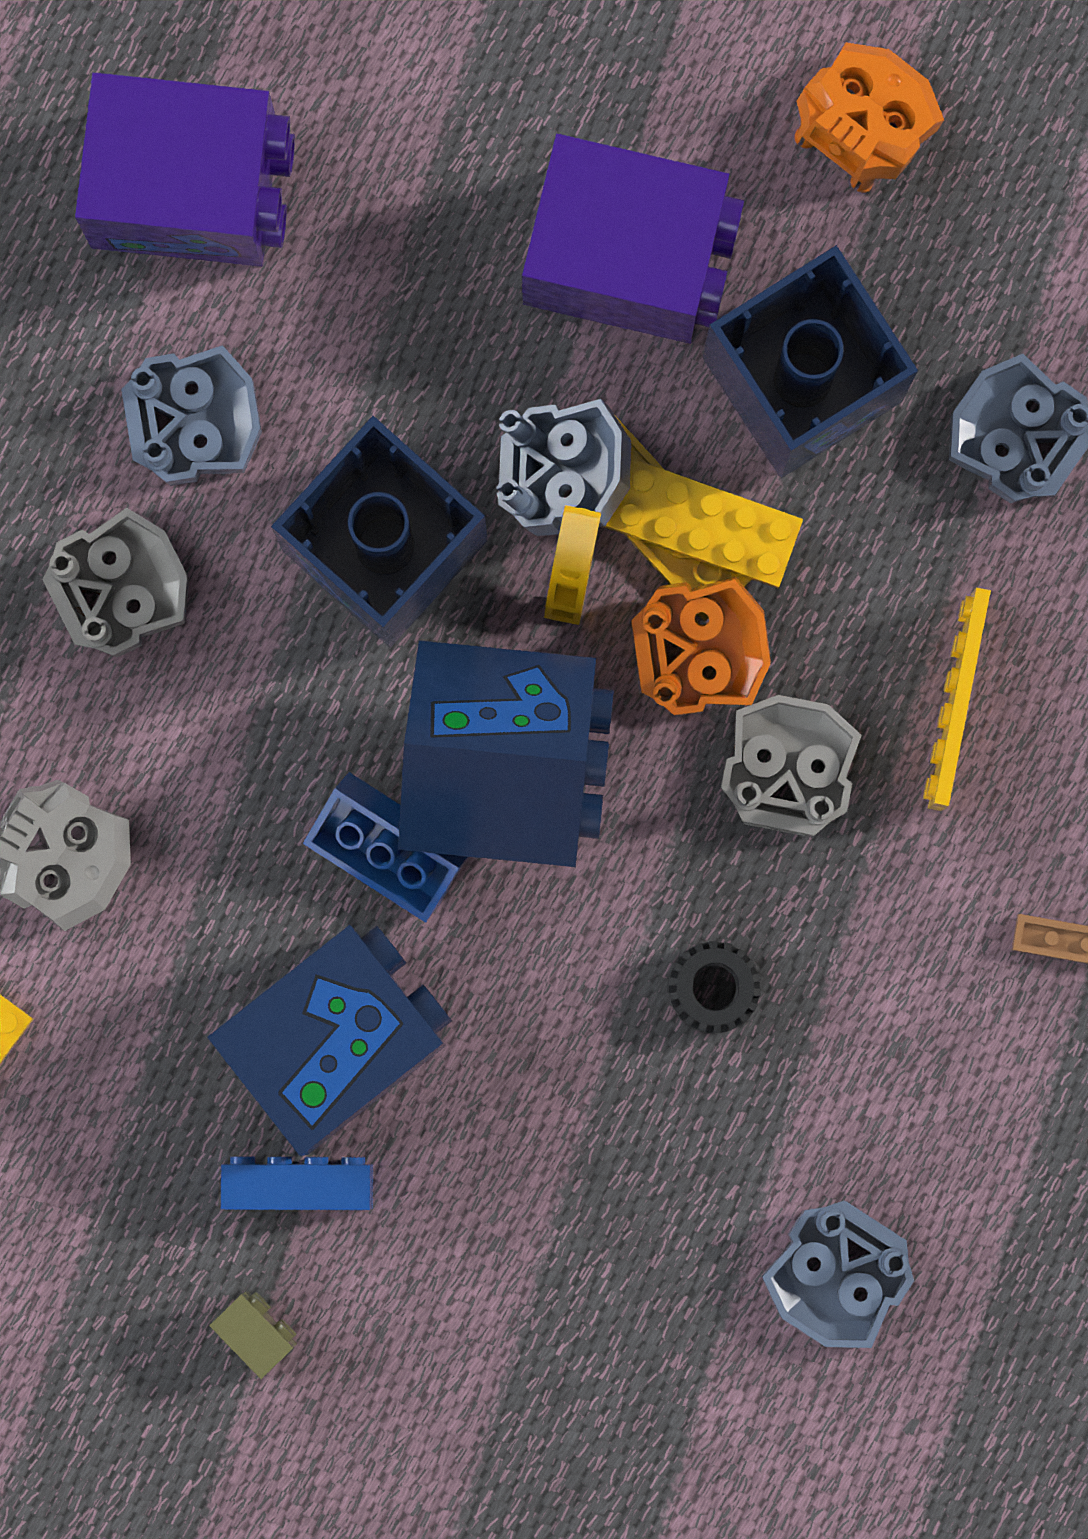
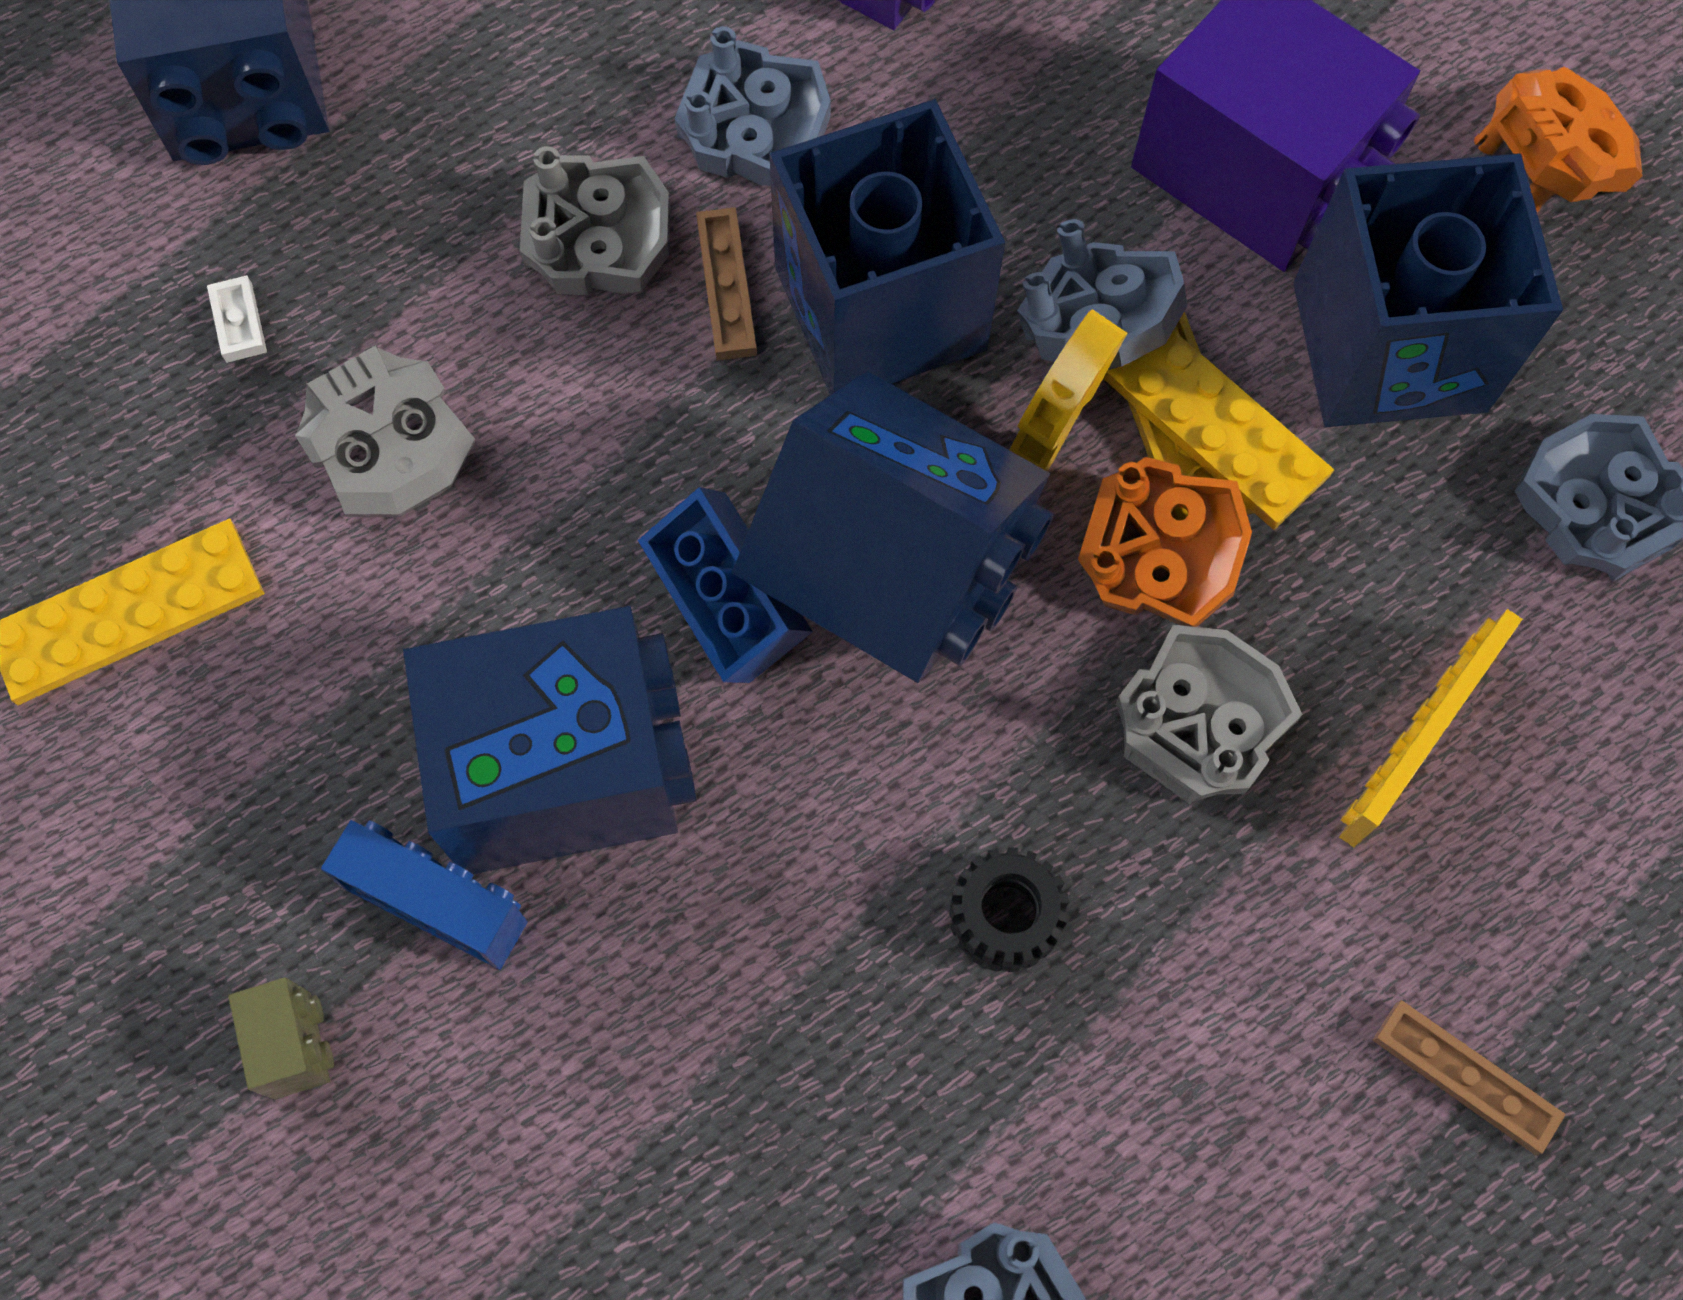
camera: 25 degrees right, 15 degrees down
(249, 582) = (726, 284): none -> medium nougat plate

